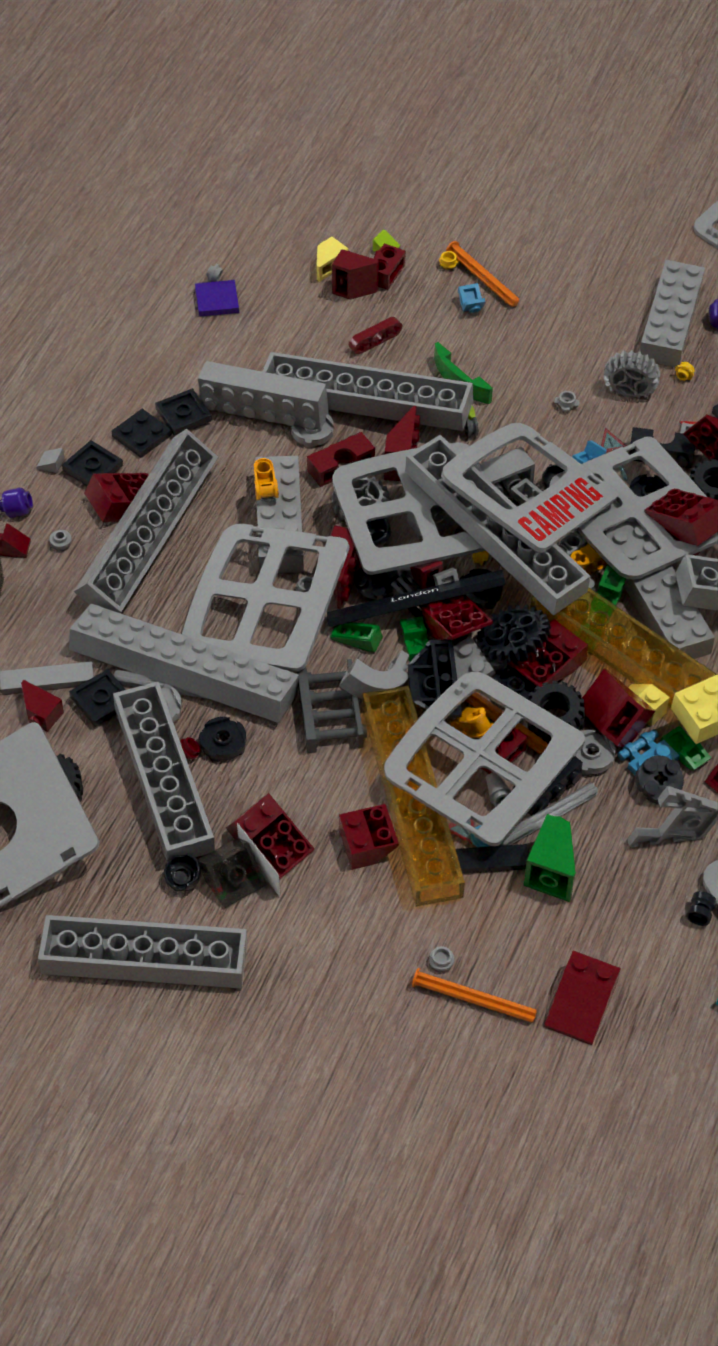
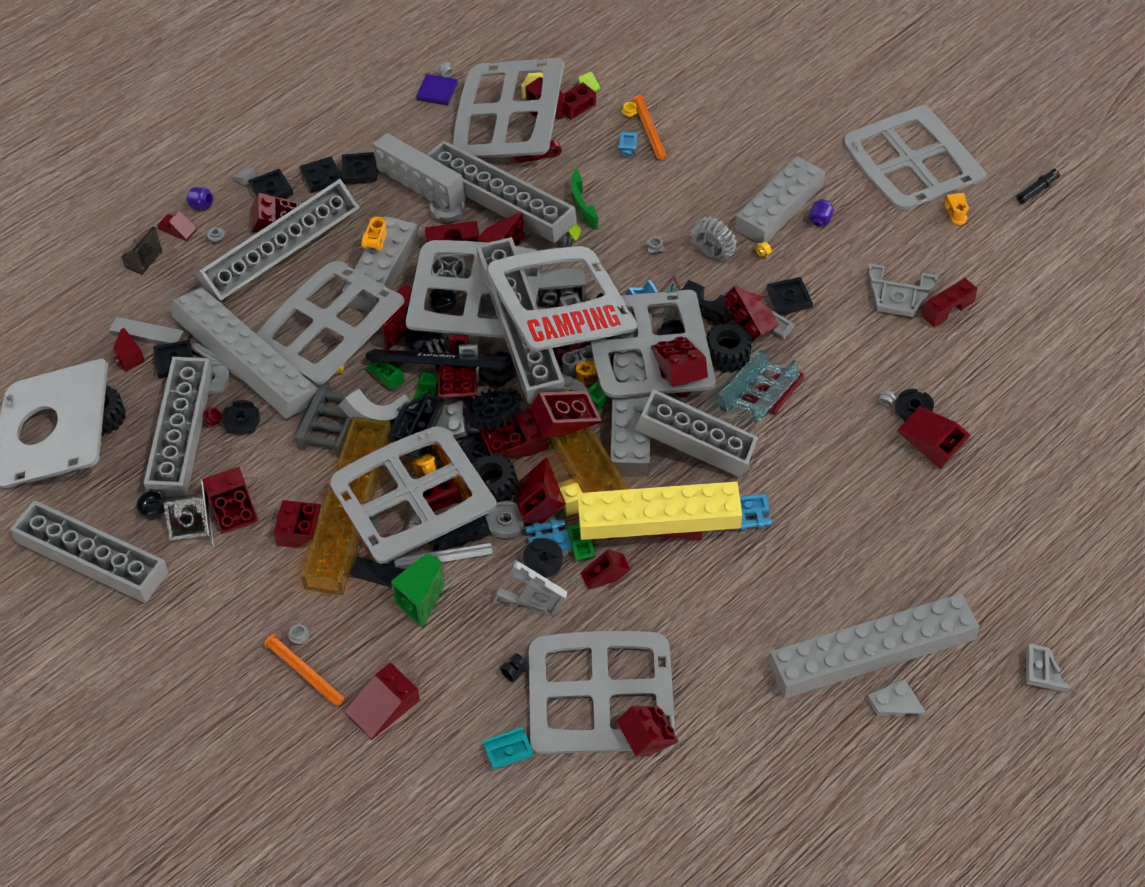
camera: 25 degrees right, 0 degrees up
(320, 294) = (506, 106): none -> light grey window
(601, 611) = (564, 412): none -> dark red slope

